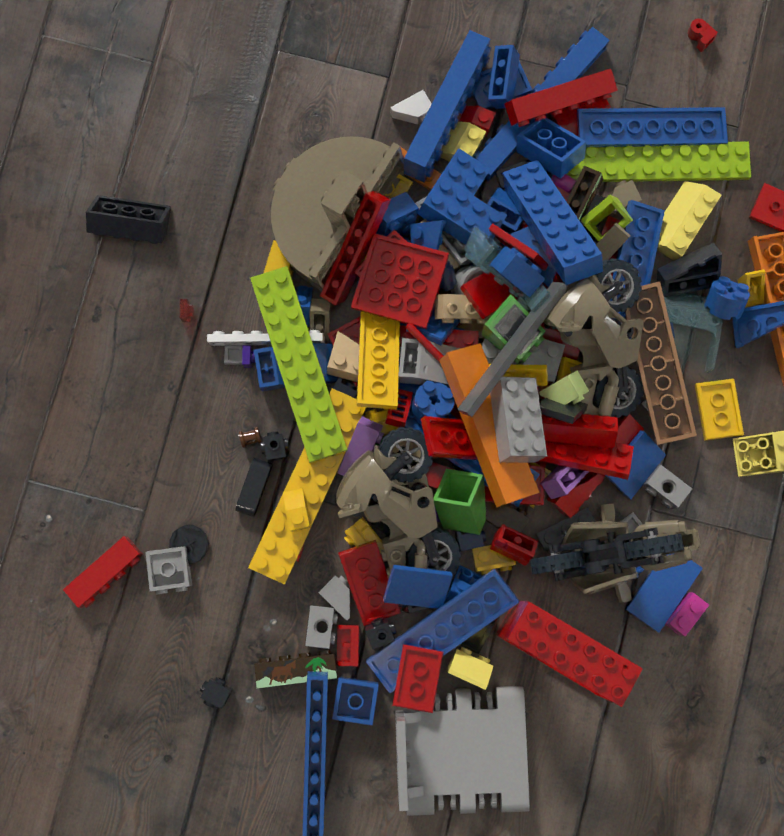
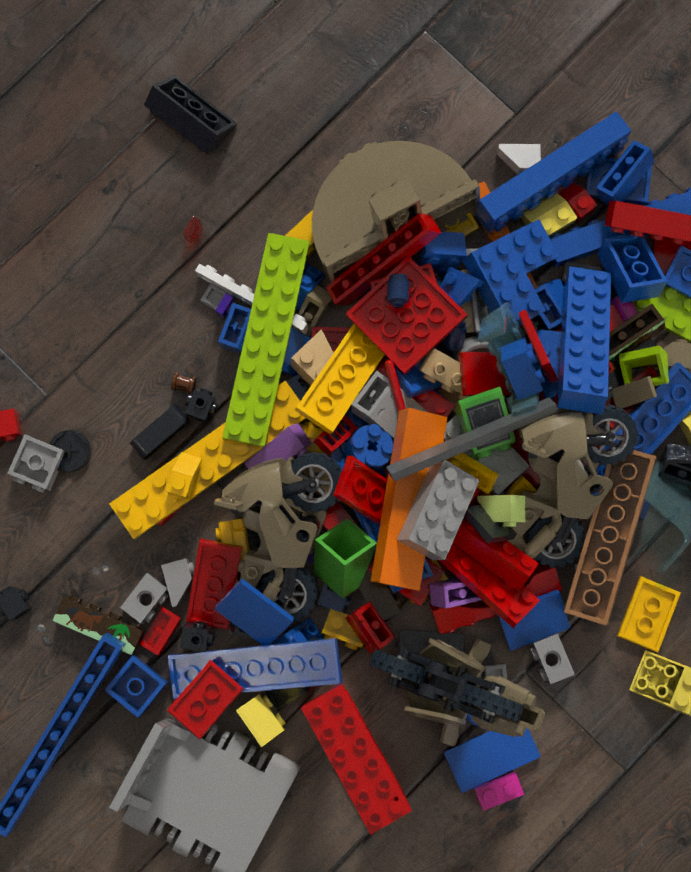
camera: 35 degrees right, 0 degrees up
(383, 264) = (398, 290): none -> dark blue brick

